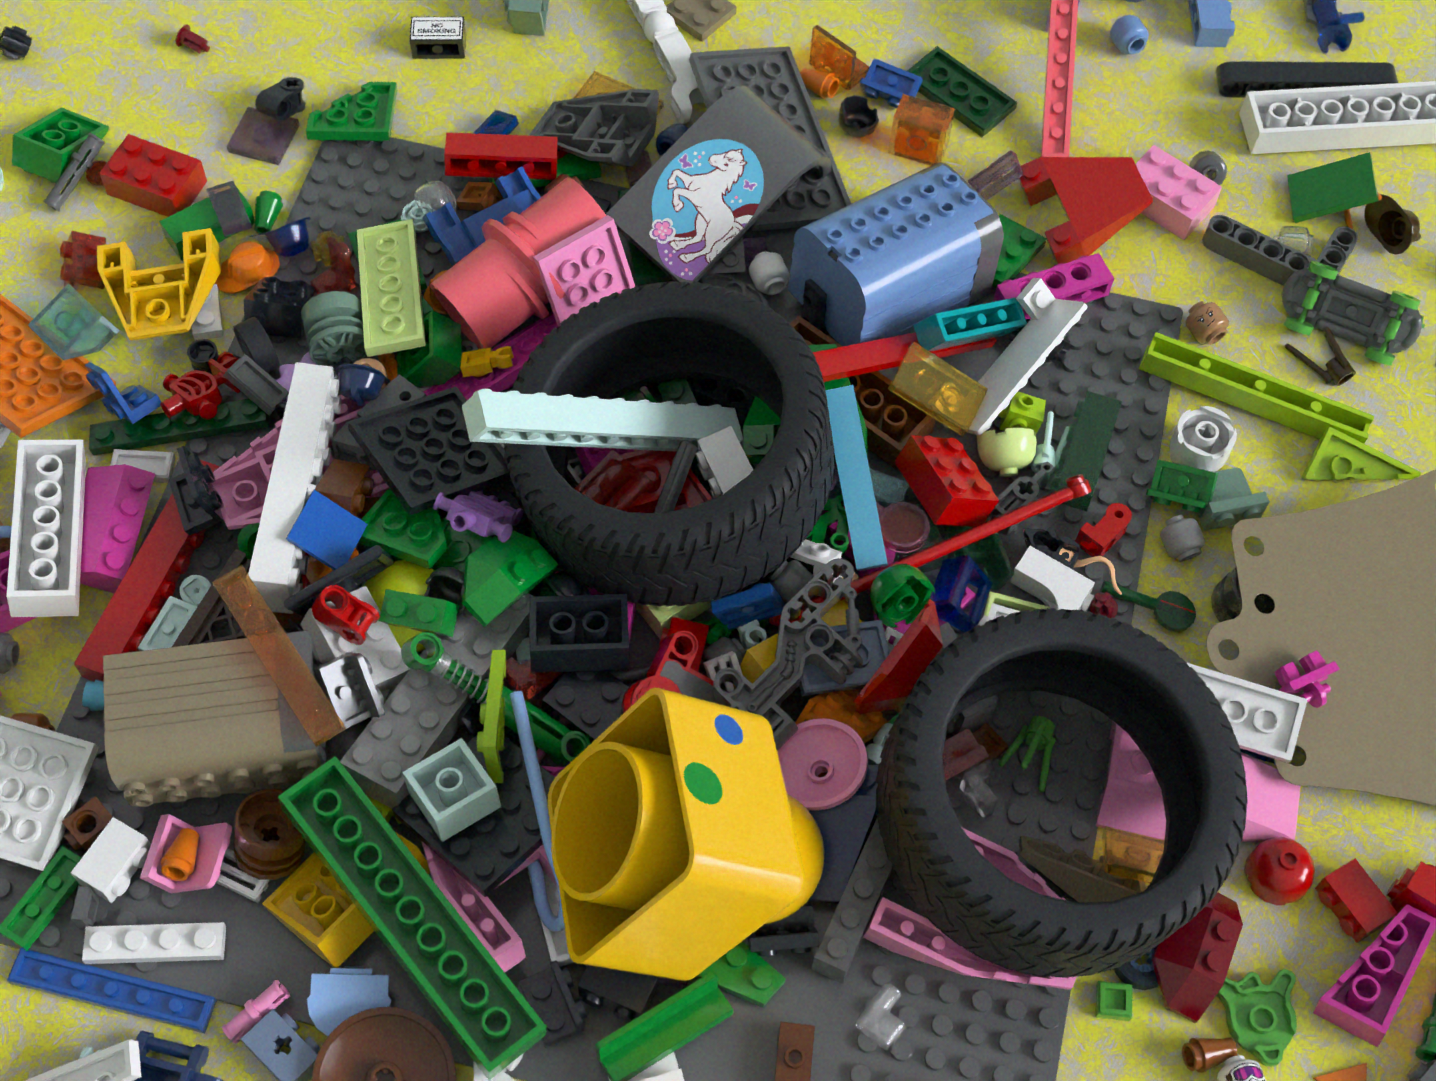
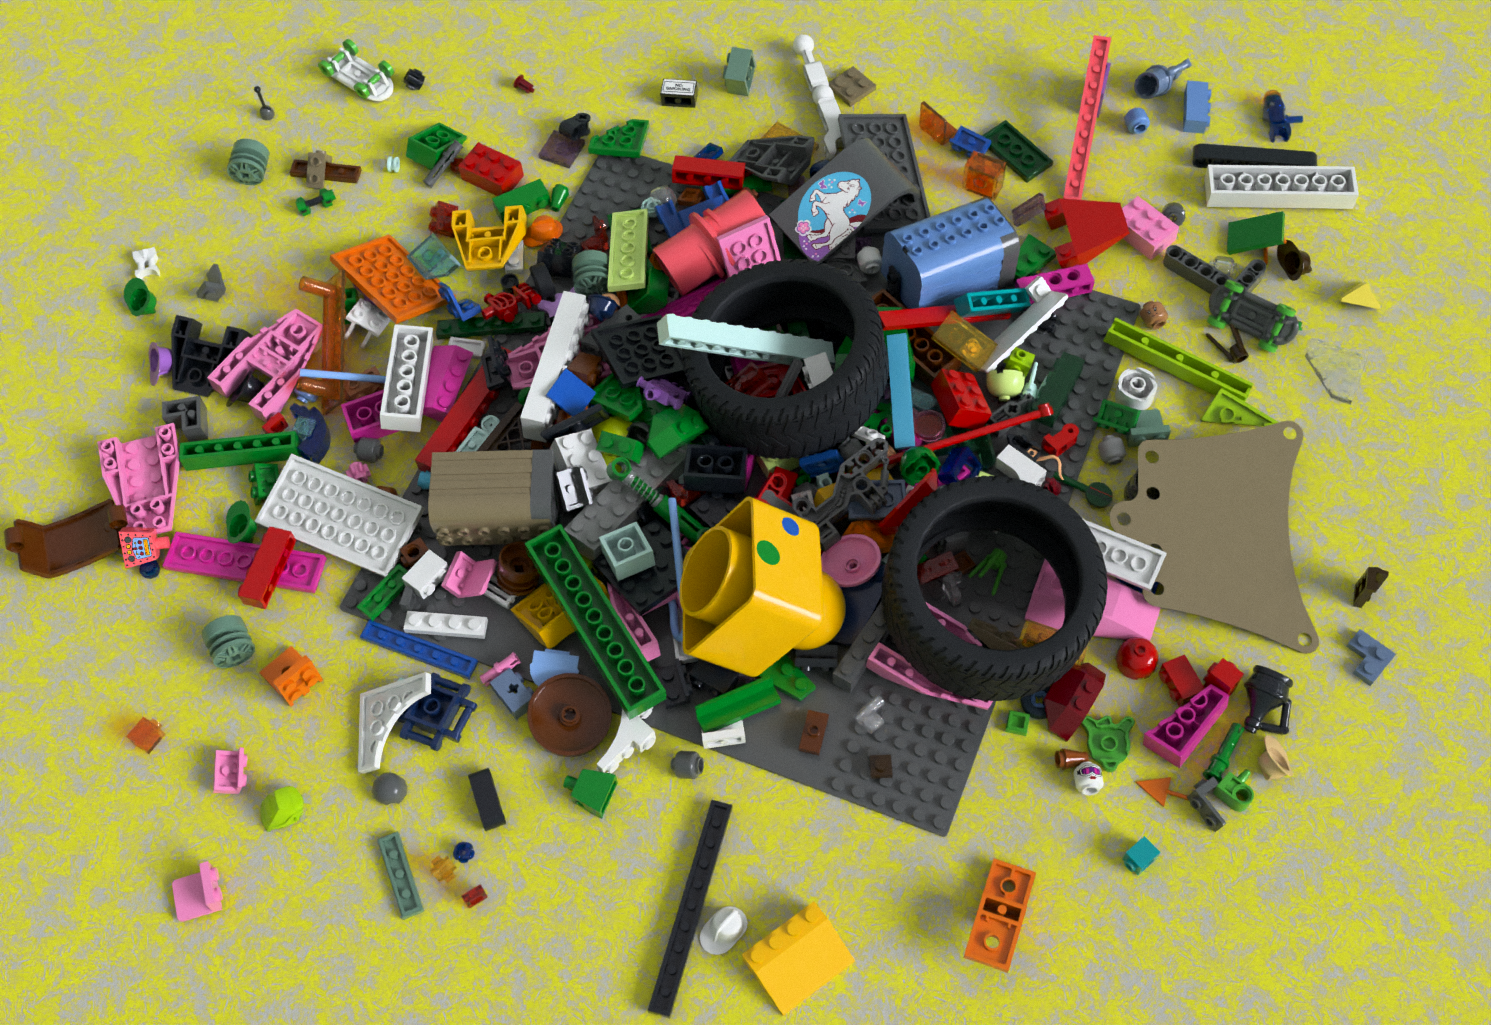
camera: 15 degrees right, 0 degrees up
(181, 856) = (465, 576): orange cone -> none
(229, 208) = (535, 193): tile -> none
(256, 384) = (539, 303): dark grey tile -> none
(279, 656) = (533, 461): clear orange plate -> none
(290, 238) = (570, 215): clear blue piece -> none
(320, 247) = (588, 222): clear yellow gear -> none
(346, 615) = (576, 443): red piece -> none
(482, 361) = (680, 300): yellow plate -> none
(493, 717) = (656, 513): lime wing -> none
(821, 83) = (923, 139): orange cone -> none
(857, 117) = (944, 163): black hair -> none
(1316, 671) = (1172, 544): dark pink hips -> none

